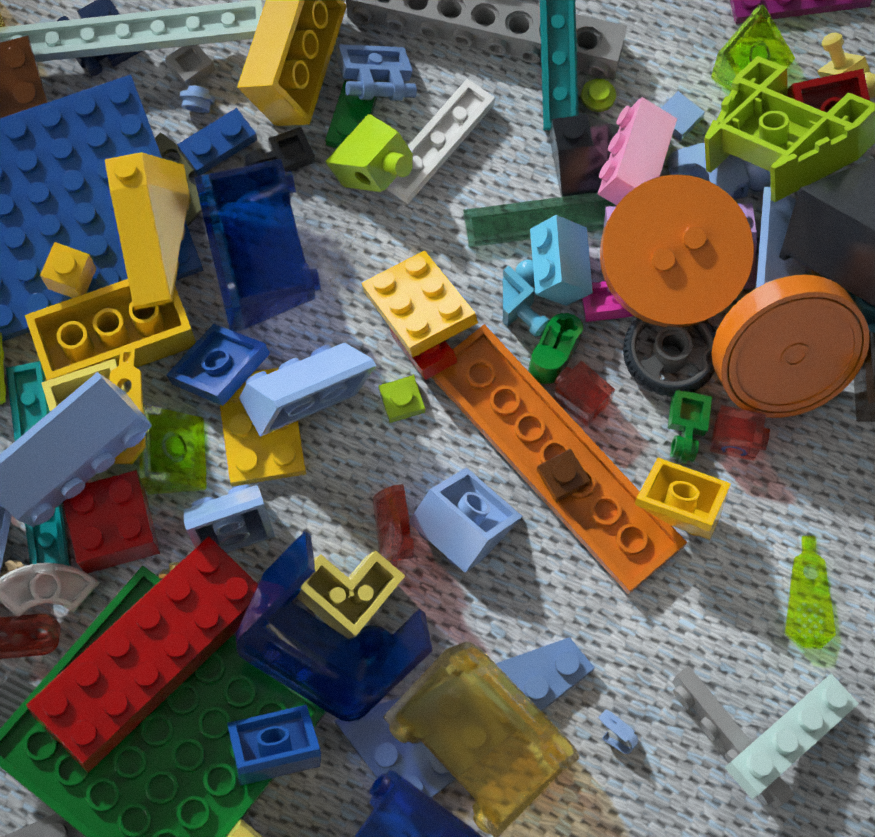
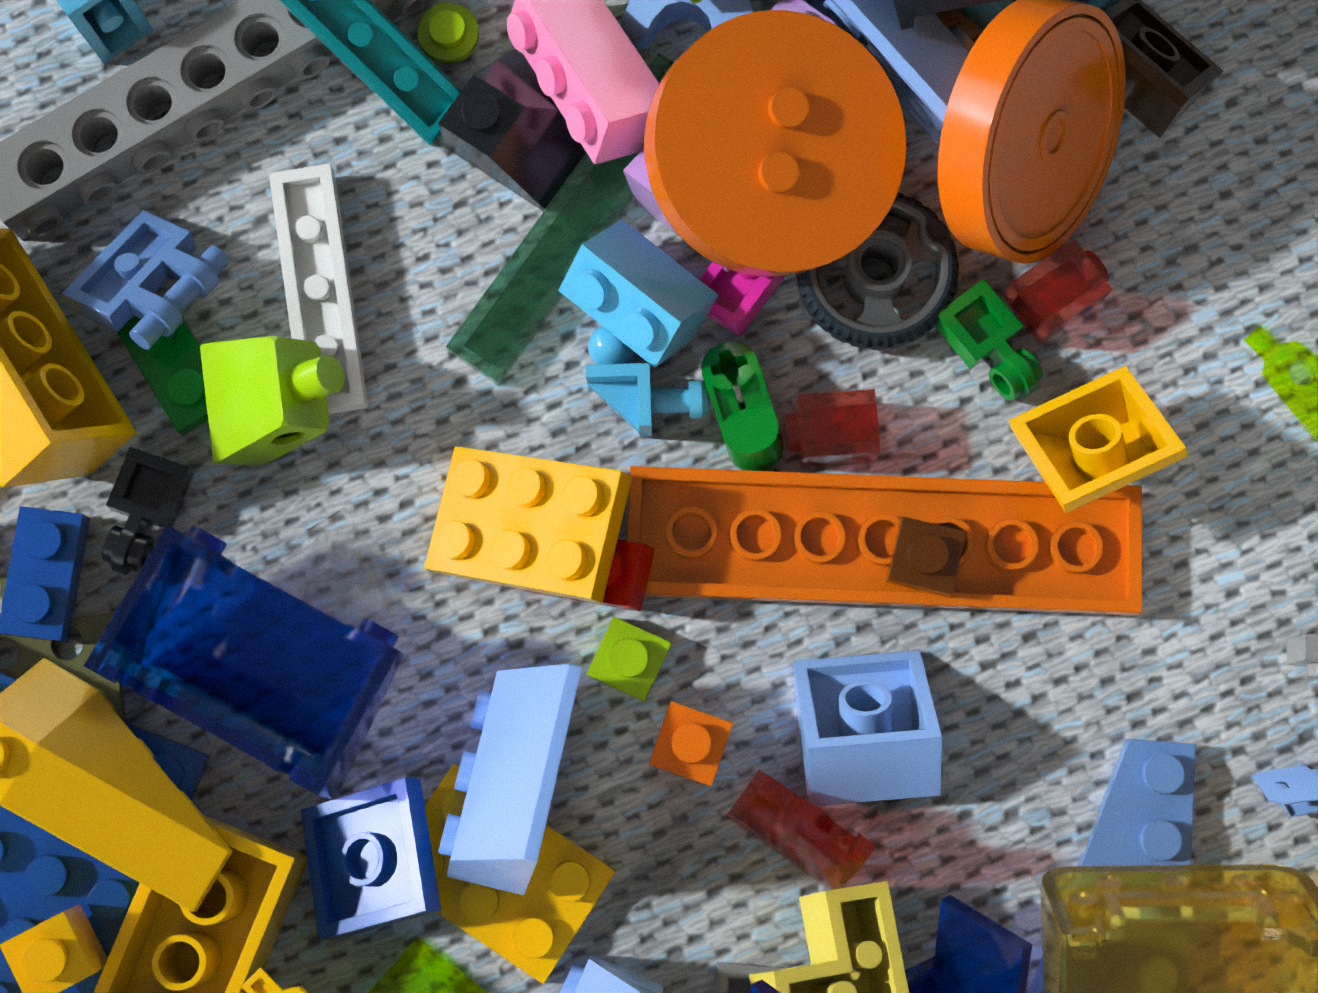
camera: 45 degrees left, 10 degrees up
(388, 451) = (690, 744): none -> orange brick

